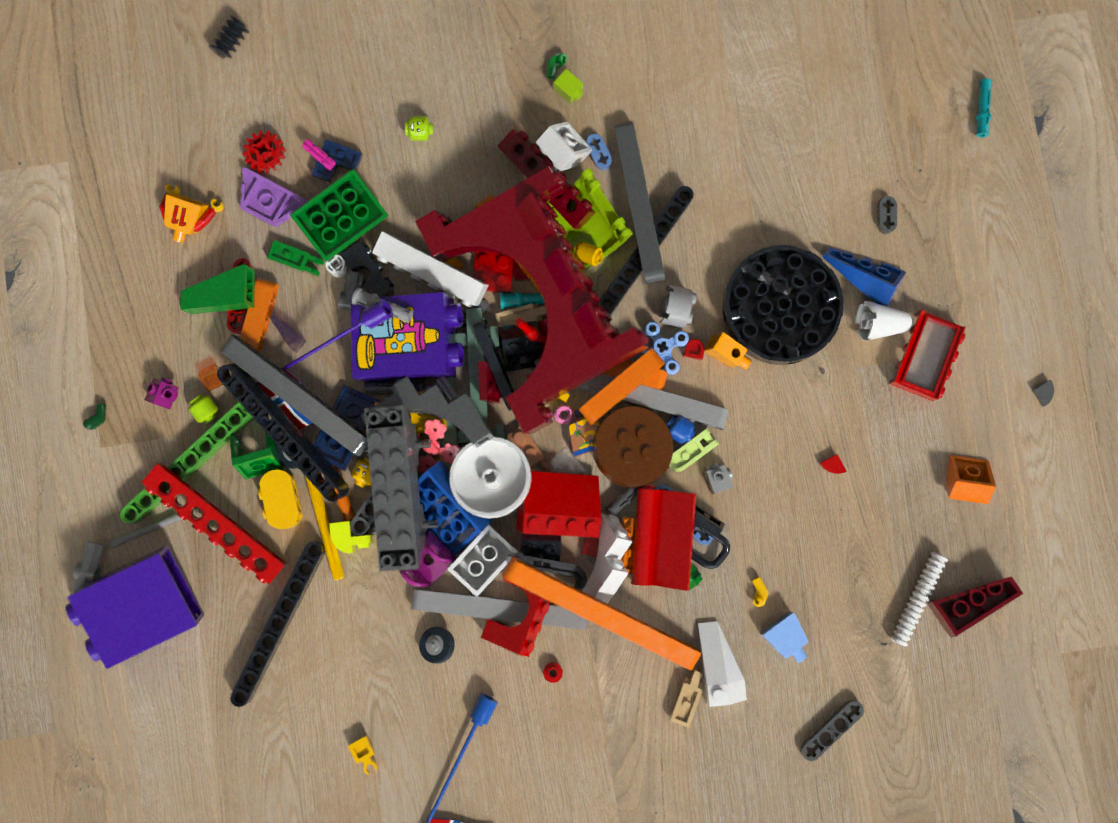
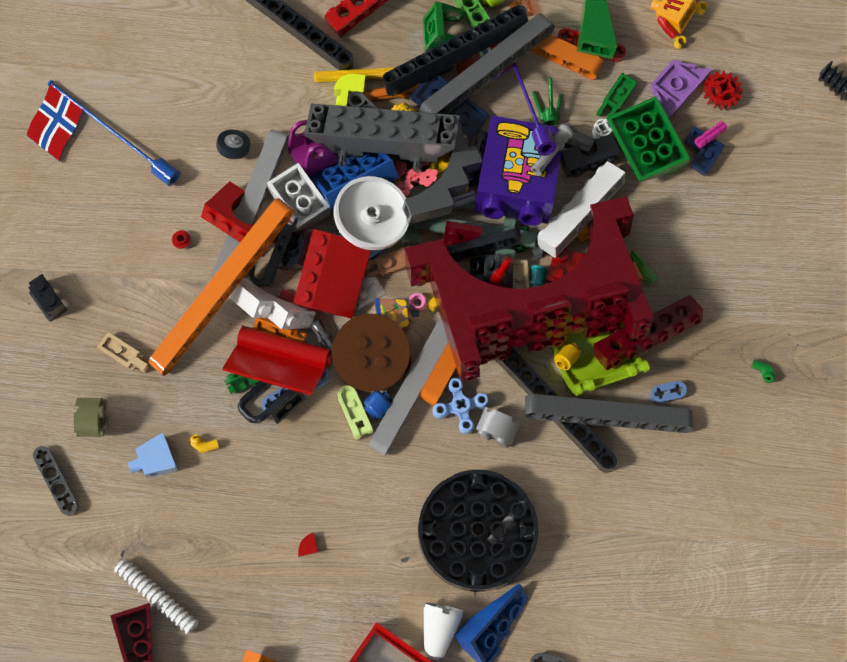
camera: 100 degrees right, 10 degrees down
(280, 499) = (397, 41): yellow brick -> none
(293, 339) = (540, 81): clear purple slope -> none
(329, 321) = (550, 115): none -> green plant
(362, 752) = (157, 65): yellow plate -> none
(418, 128) = (721, 229): lime head -> none
(481, 193) = (649, 276): none -> bright green axle
(563, 146) = (678, 355): white brick -> none
(568, 86) = (738, 375): lime brick -> none
(621, 386) = (430, 354): orange beam -> none
(649, 796) = (46, 298): none -> black window
(694, 349) = (453, 438): red tile -> none
(718, 478) = (322, 430): light grey brick -> none
(721, 672) = (138, 389): white wedge -> none
(727, 351) = (447, 459): light orange torso -> none
(765, 712) = (90, 417): none -> olive brick

